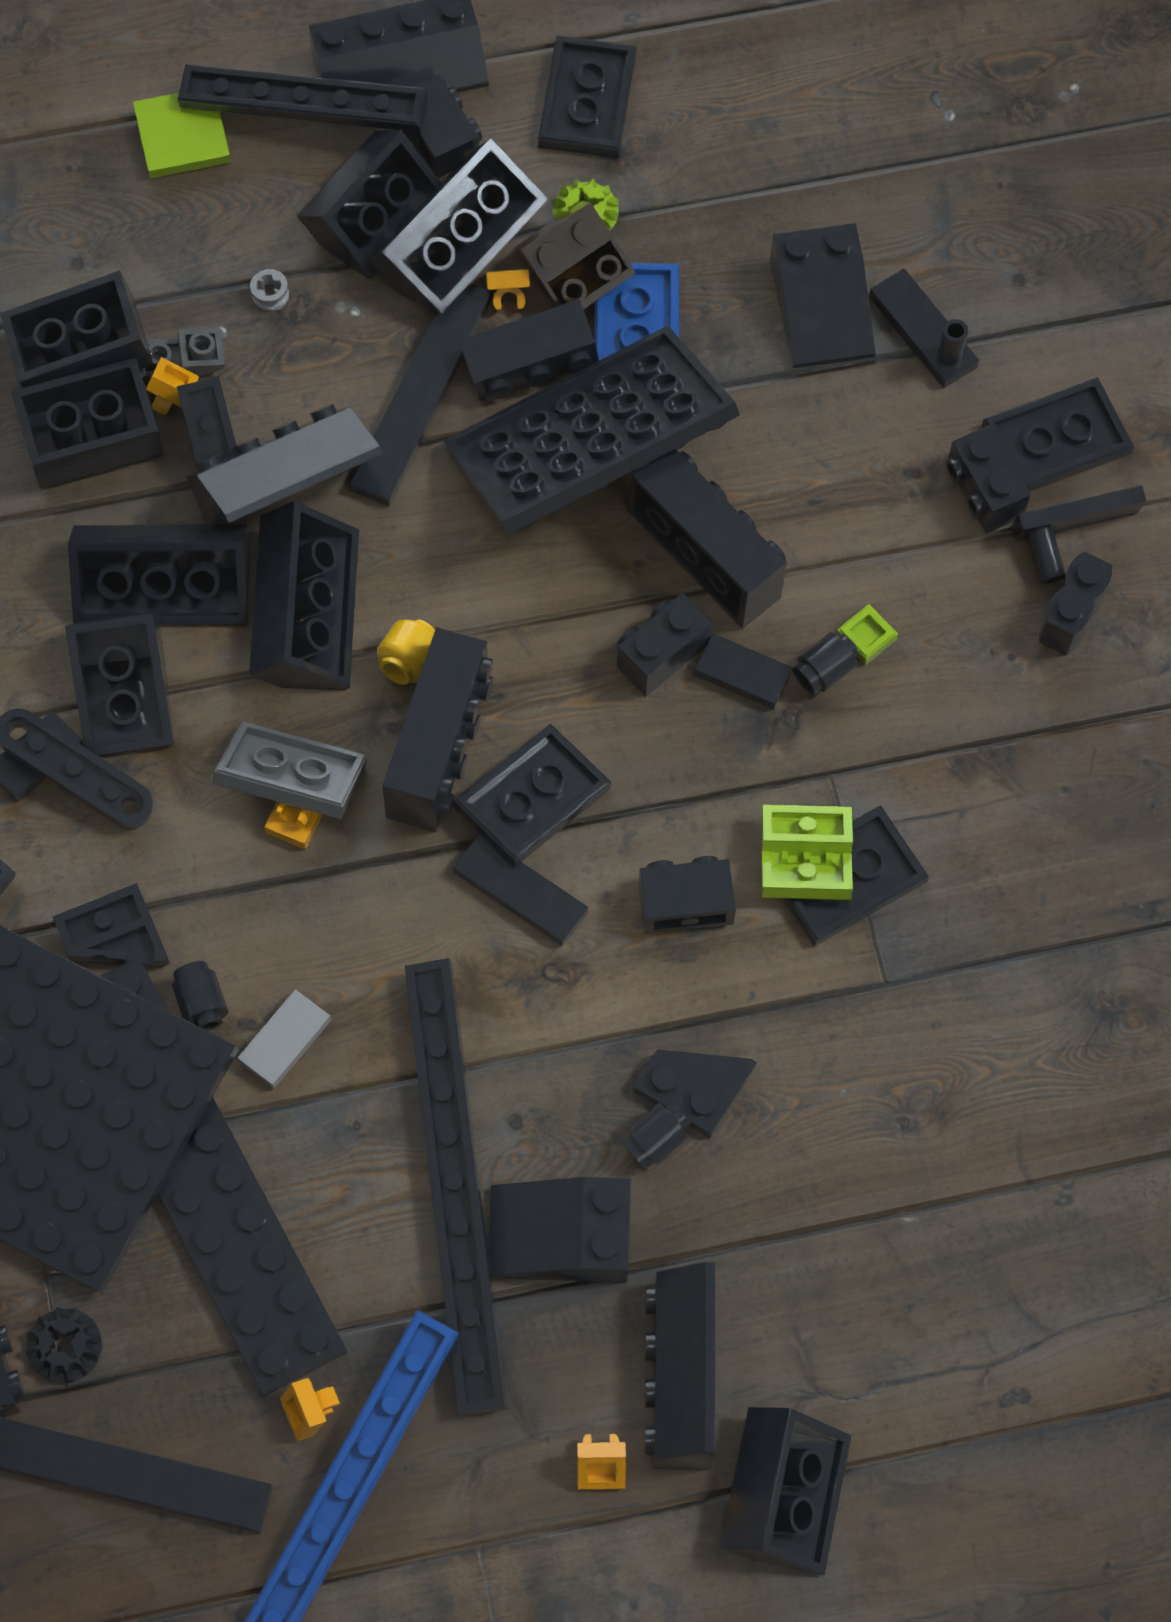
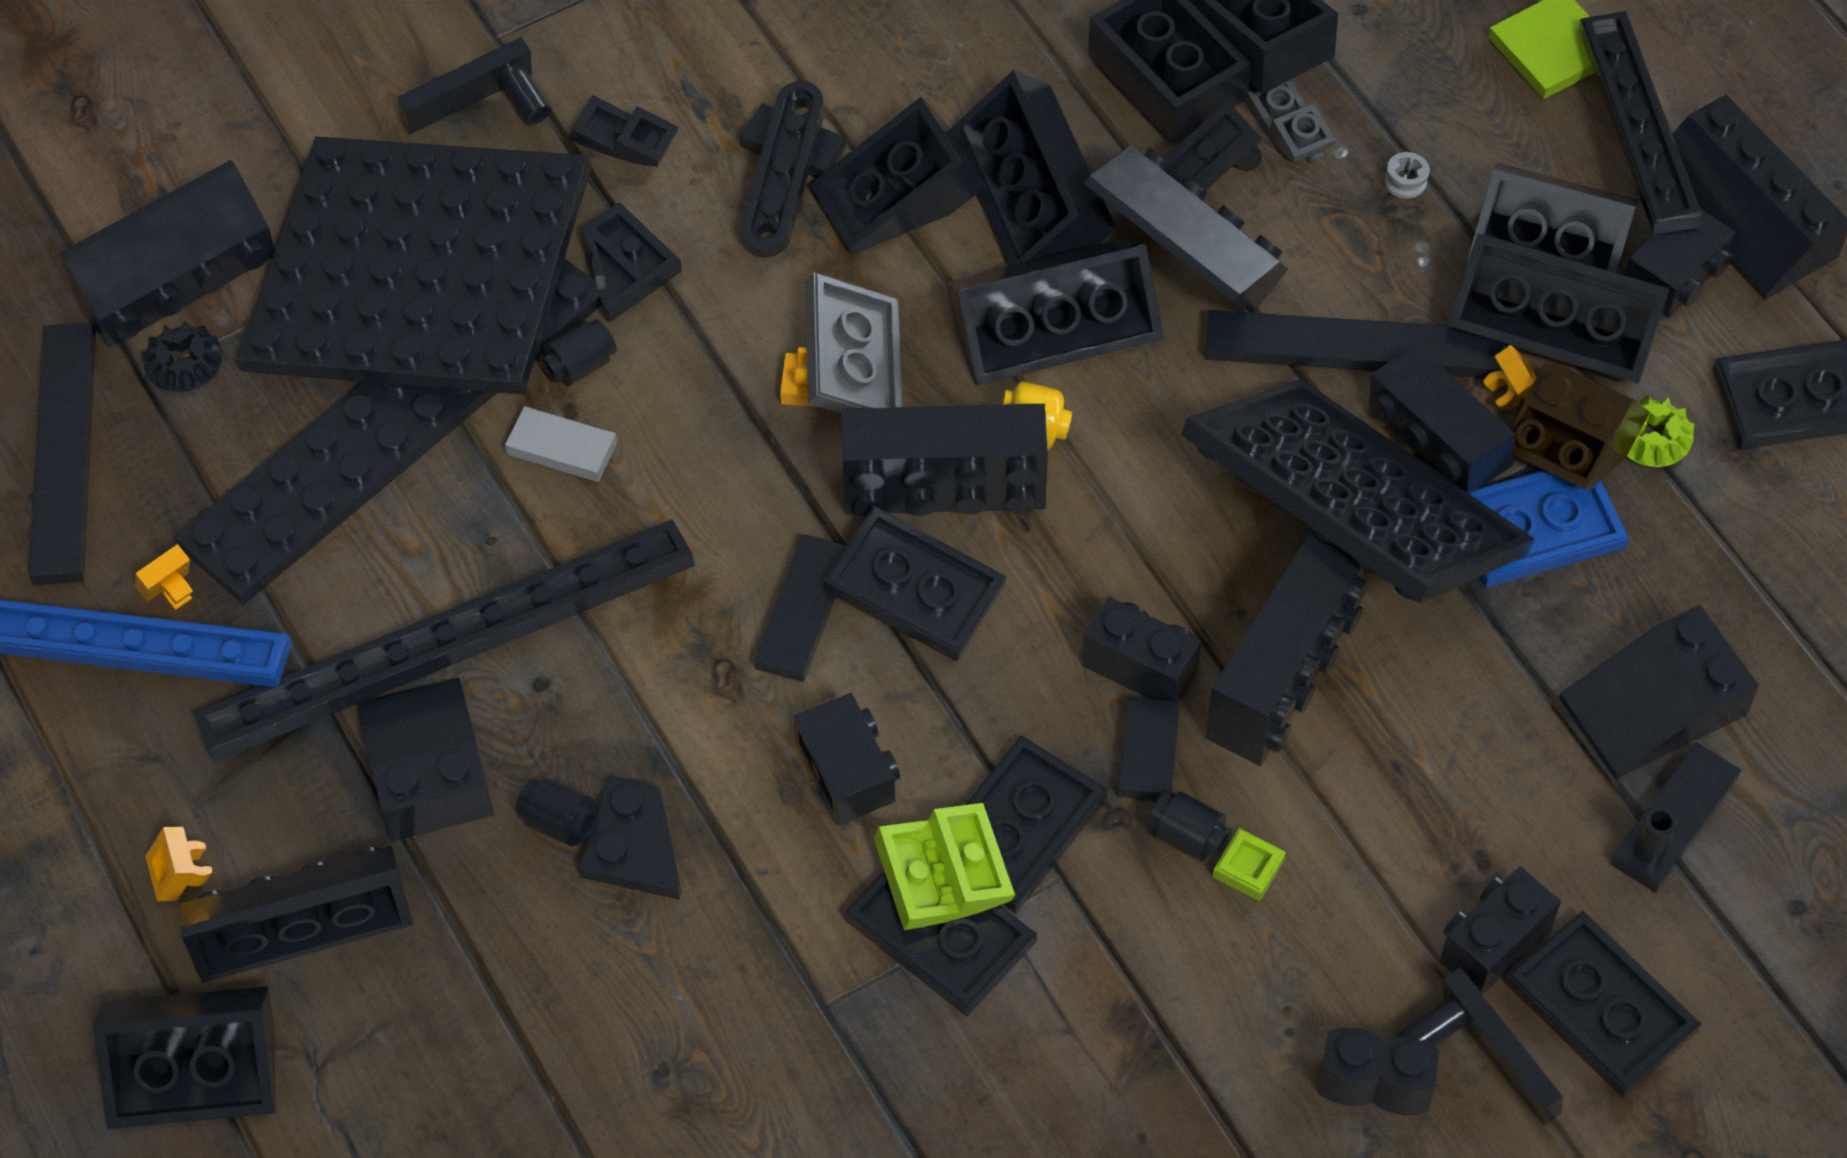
camera: 75 degrees right, 10 degrees down
(164, 383) = (1254, 108): light orange tile -> none
(767, 769) = (1035, 812): none -> black tile

